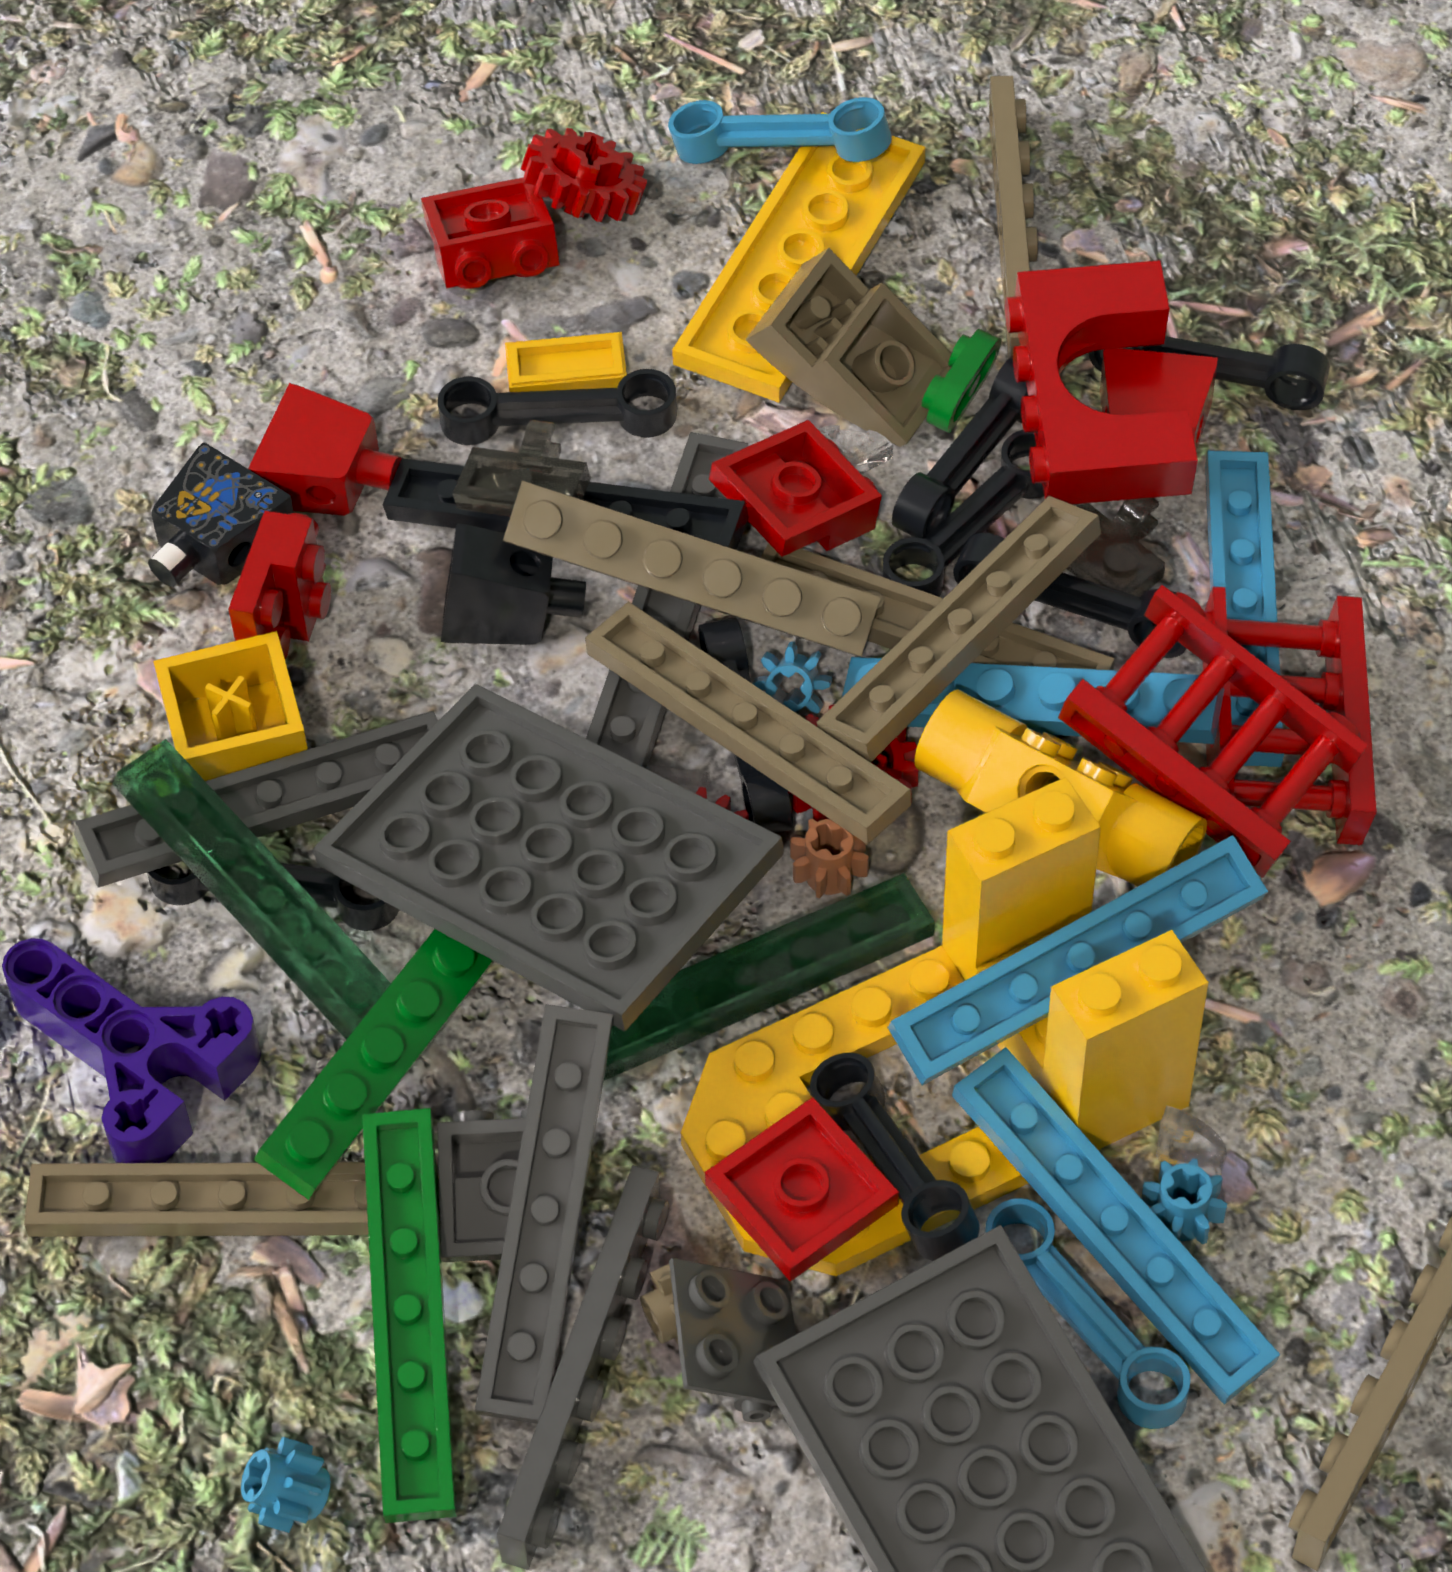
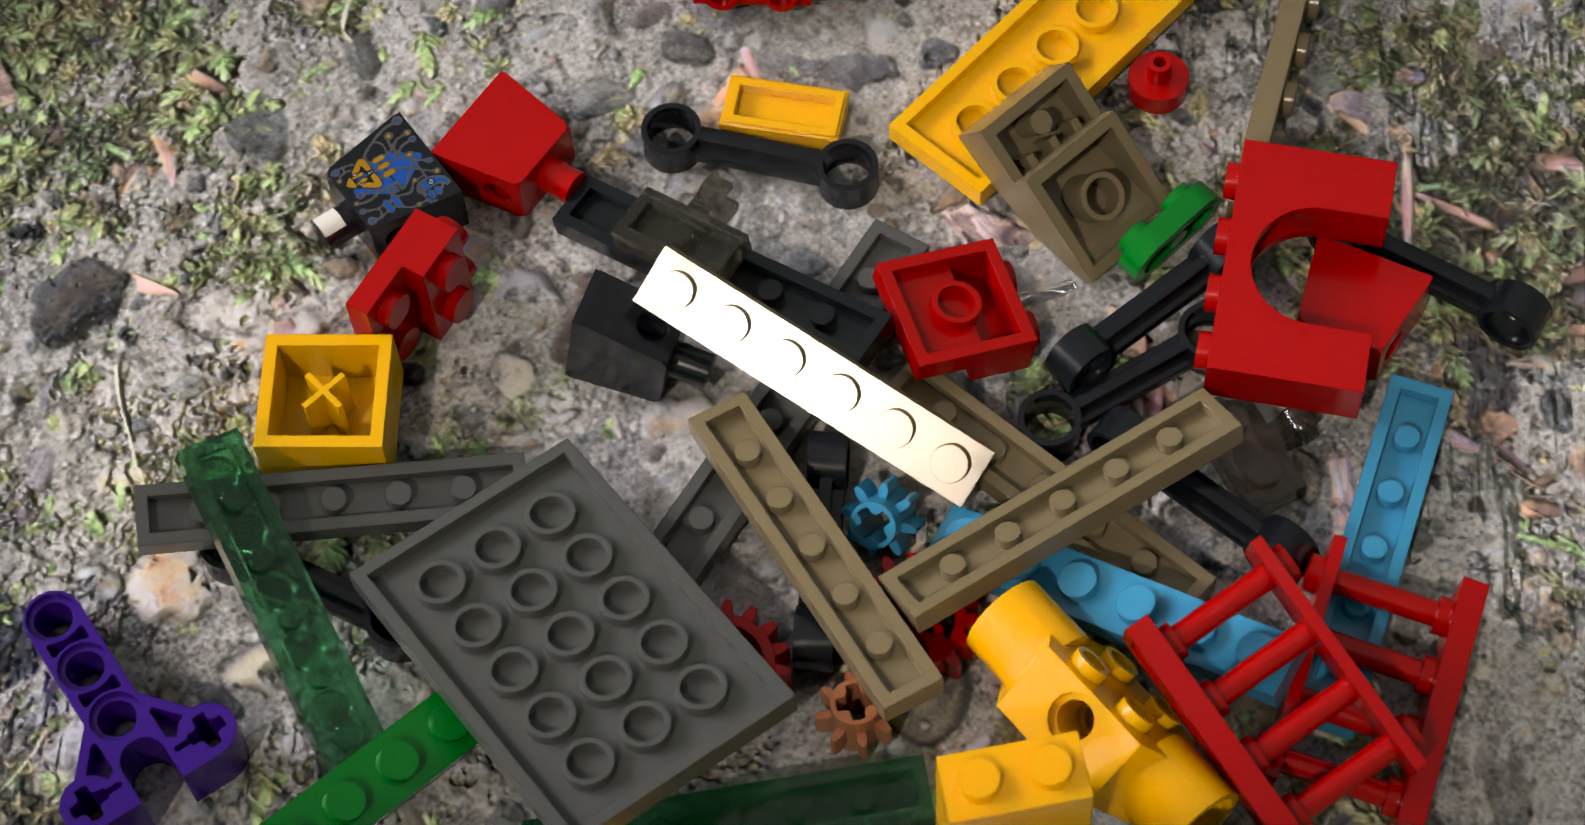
camera: 20 degrees right, 5 degrees up
(903, 260) = (1157, 82): none -> red tile

